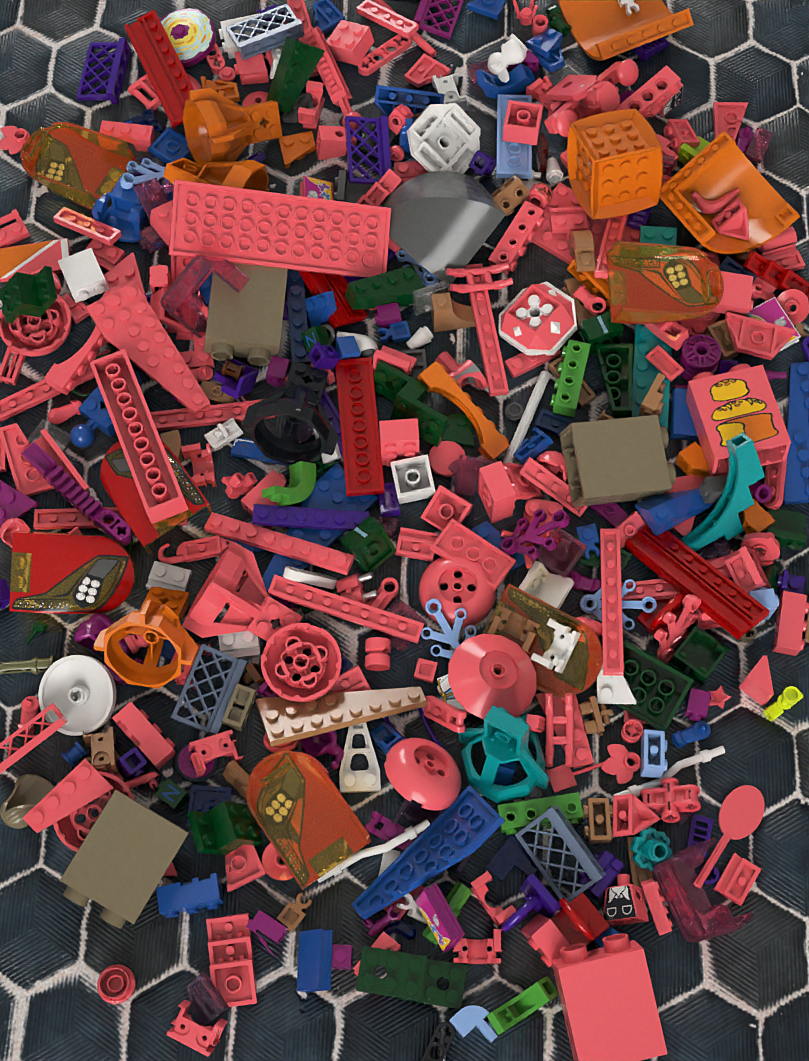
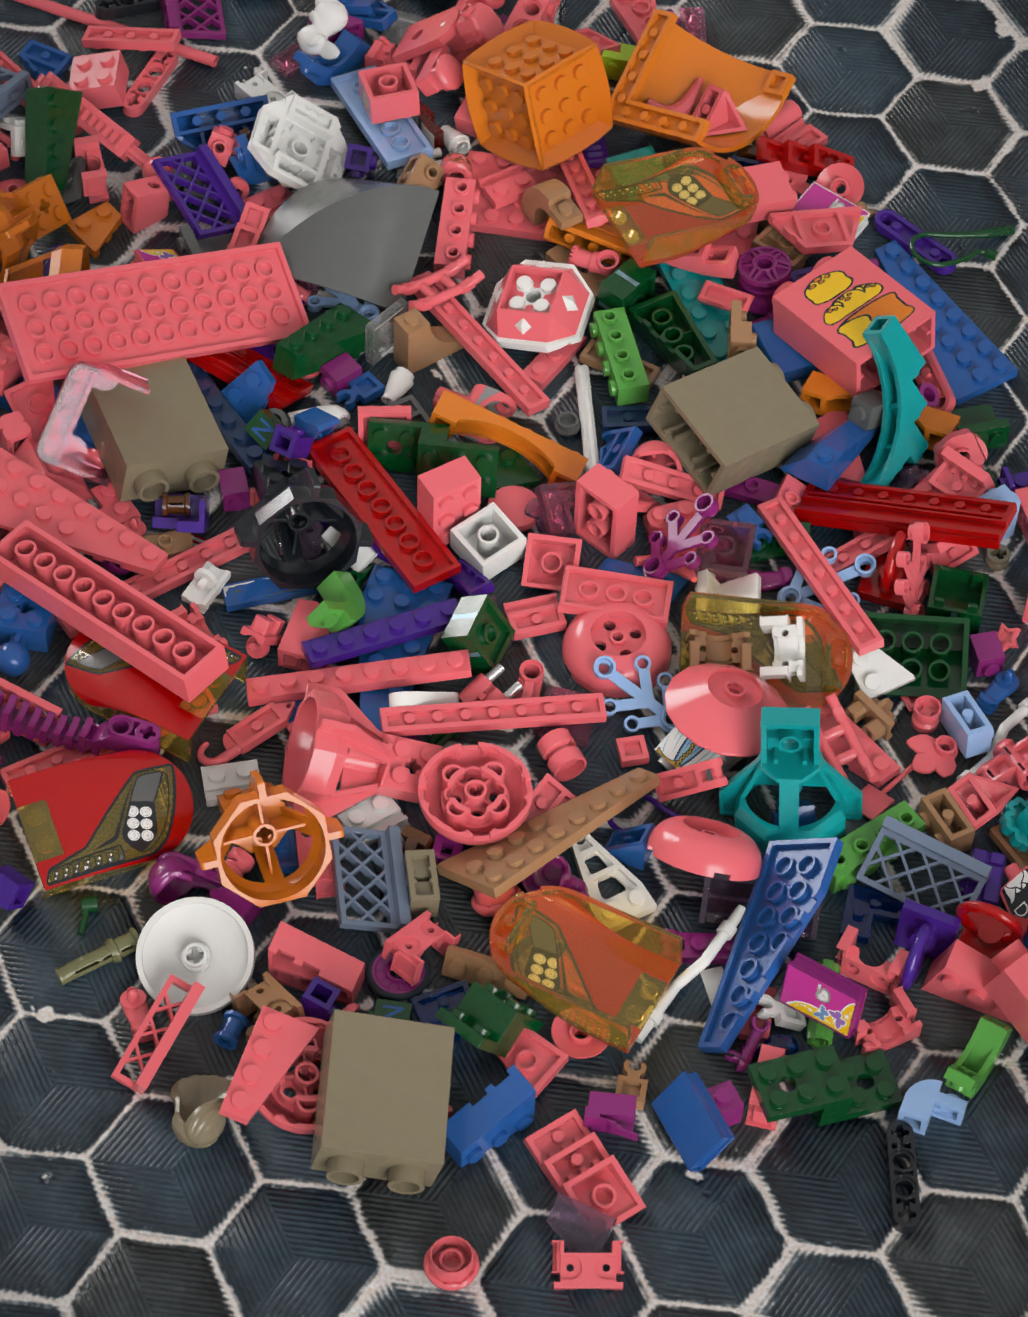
camera: 30 degrees left, 15 degrees down
(424, 69) = (217, 83): coral wing -> none

